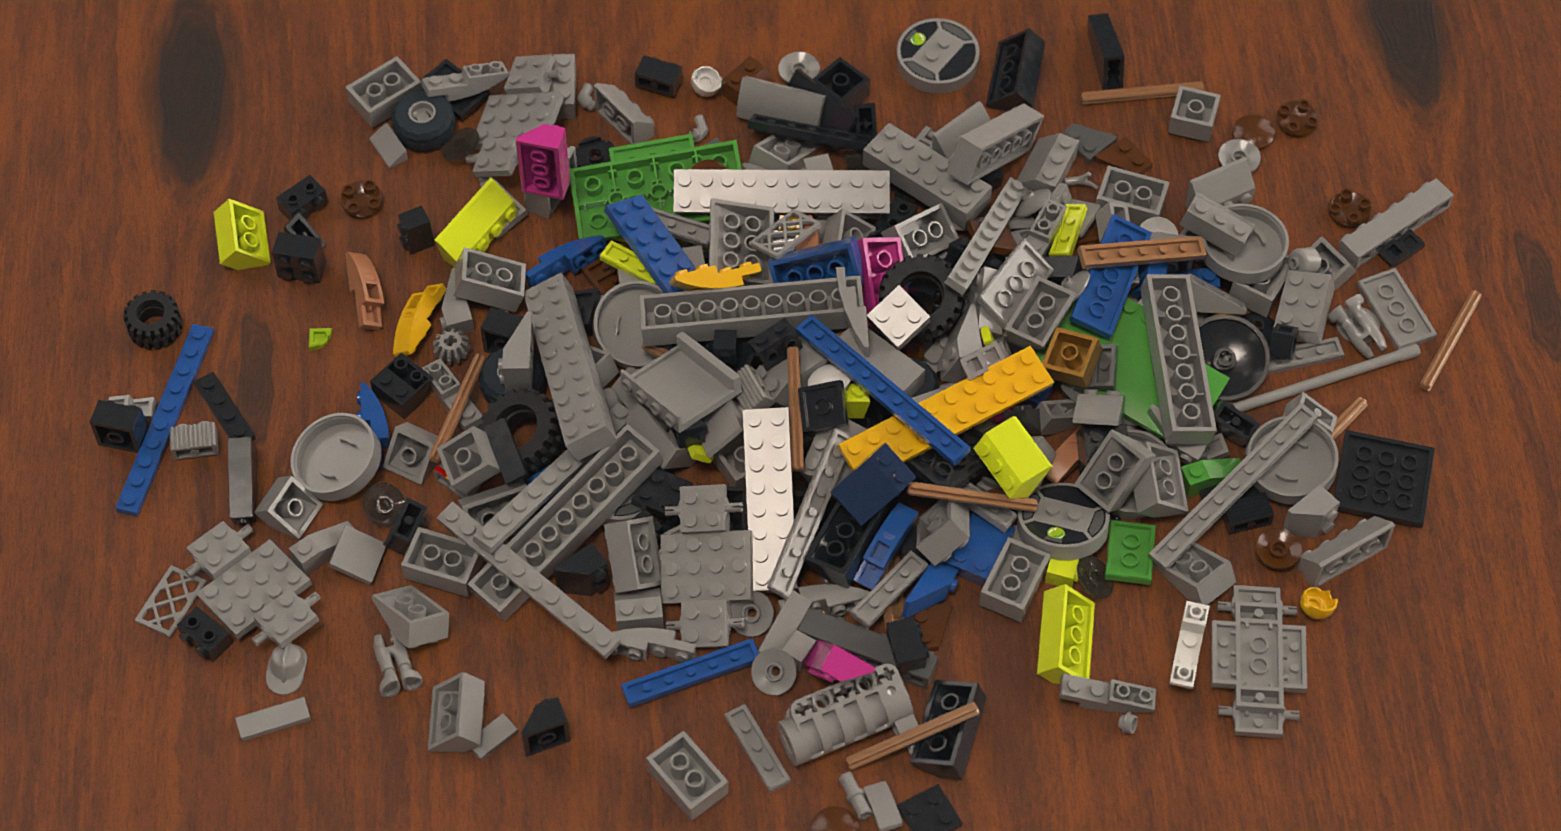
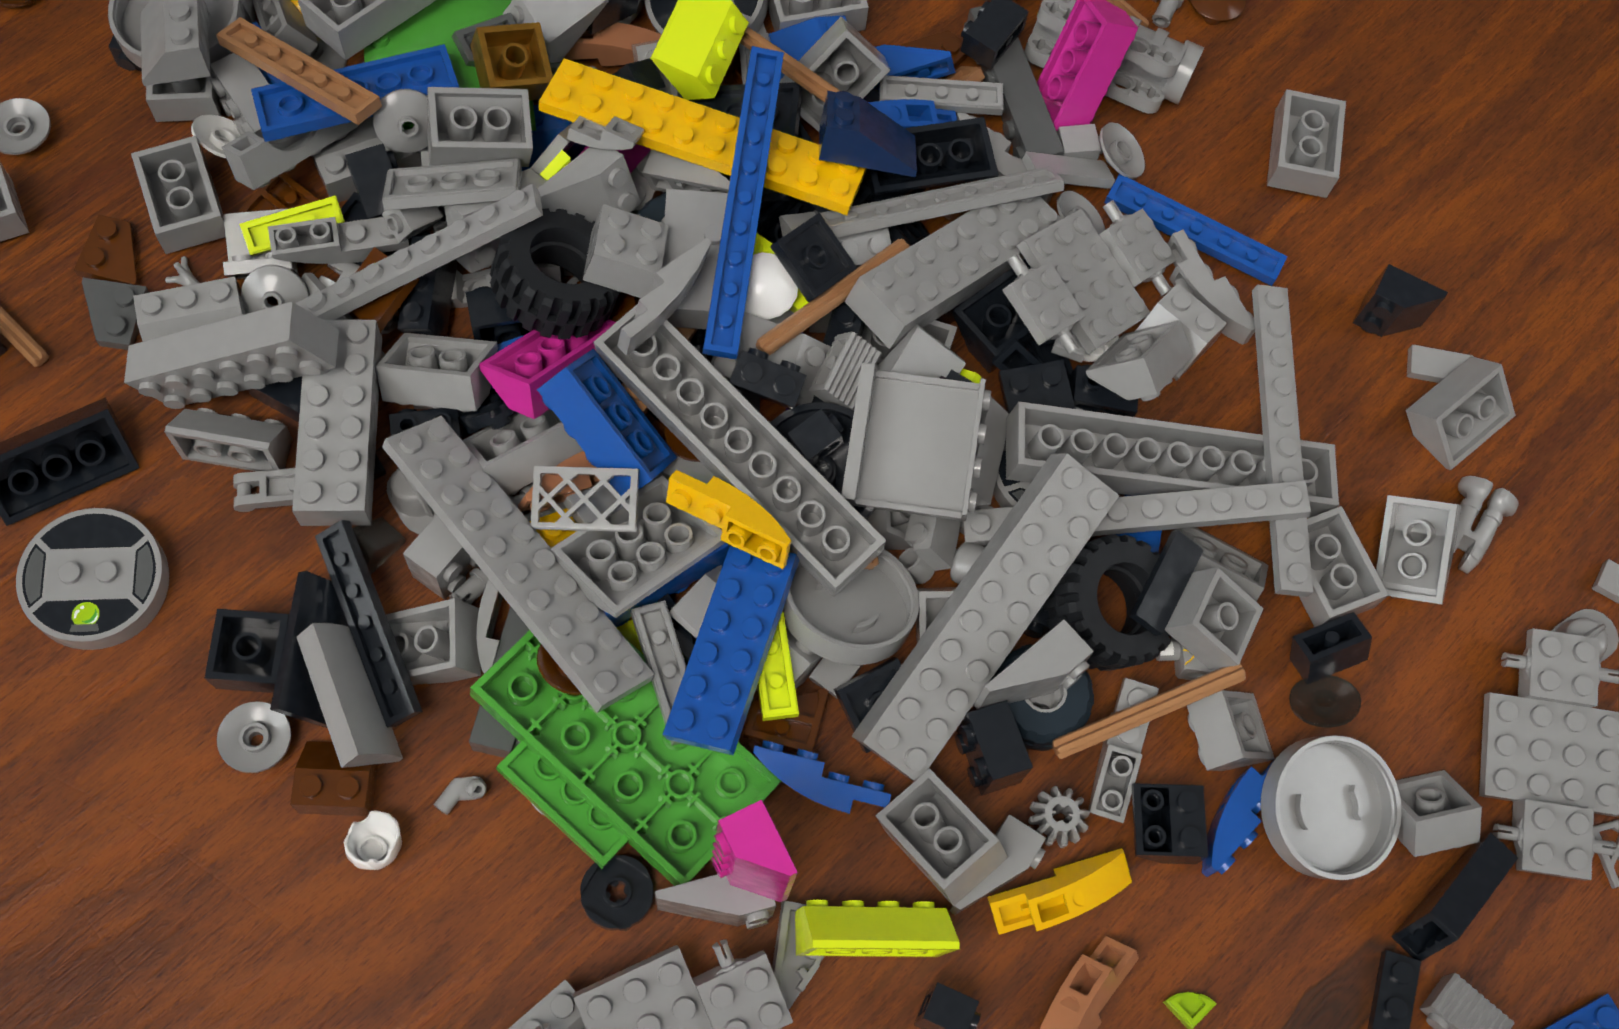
camera: 140 degrees left, 10 degrees up
(316, 548) = (1432, 725): light grey slope -> none
(357, 555) = (1408, 674): light grey tile -> none
(583, 573) = (1205, 401): black slope -> none
(584, 97) = (528, 994): light grey arm -> none
(622, 114) = (519, 904): light grey slope -> none
(658, 76) = (413, 914): black brick -> none
(757, 748) = (1206, 119): light grey tile -> none
(867, 121) = (282, 576): black slope -> none
(1225, 184) = (97, 109): light grey slope -> none

